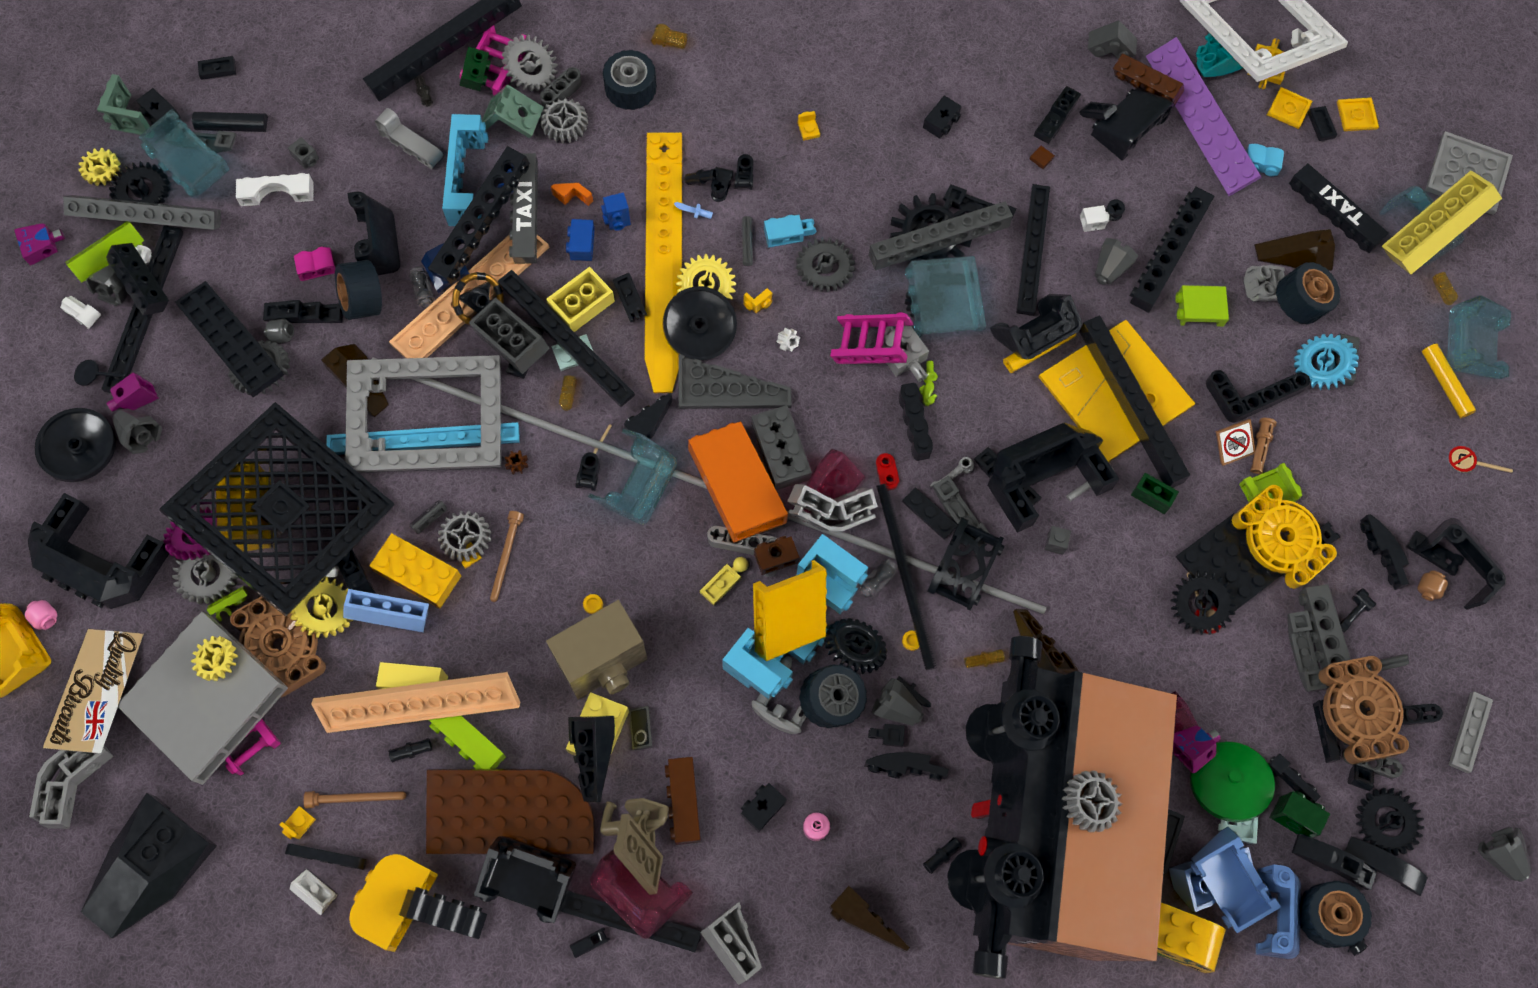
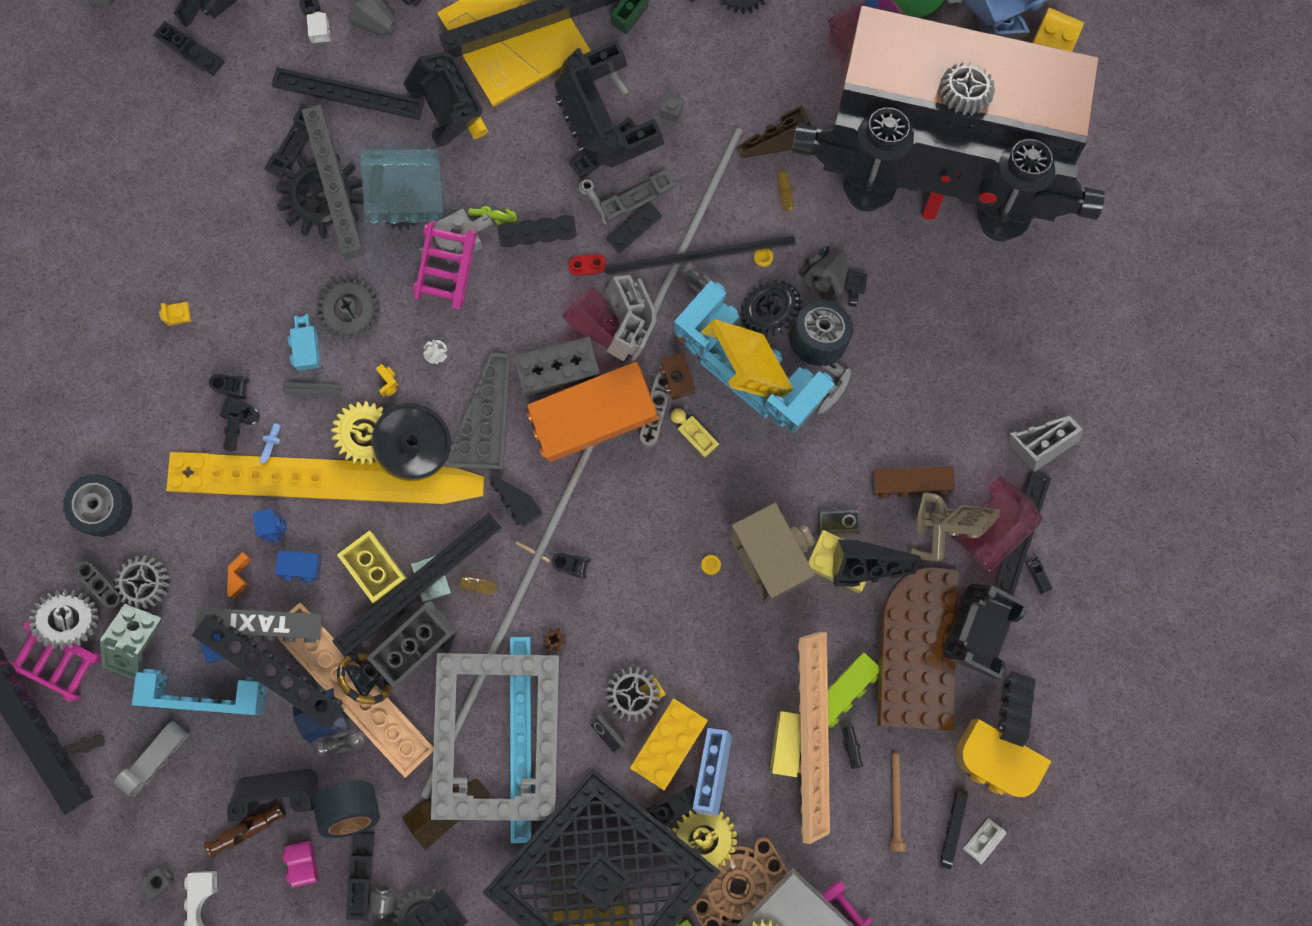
camera: 85 degrees left, 10 degrees up
(297, 823) = (920, 858): yellow bracket -> none
(344, 214) = (229, 837): none -> reddish brown piece
(474, 69) = (68, 681): dark green brick -> none
(515, 519) = (617, 643): medium nougat piece -> none
(629, 296) = (370, 516): black hinge -> none
(645, 483) = (589, 509): clear light blue windscreen -> none
(665, 36) = (42, 460): clear yellow piece -> none
(774, 801) = (915, 398): black brick -> none
(813, 833) = (936, 363): bright pink head -> none
(854, 911) = (1020, 329): dark brown wedge -> none
(897, 763) = (883, 278): black slope -> none
(942, 116) = (171, 161): black brick -> none
(942, 577) = (667, 198): black fence -> none
(942, 855) = (969, 248): black pin -> none
(1042, 157) = (237, 72): reddish brown tile -> none

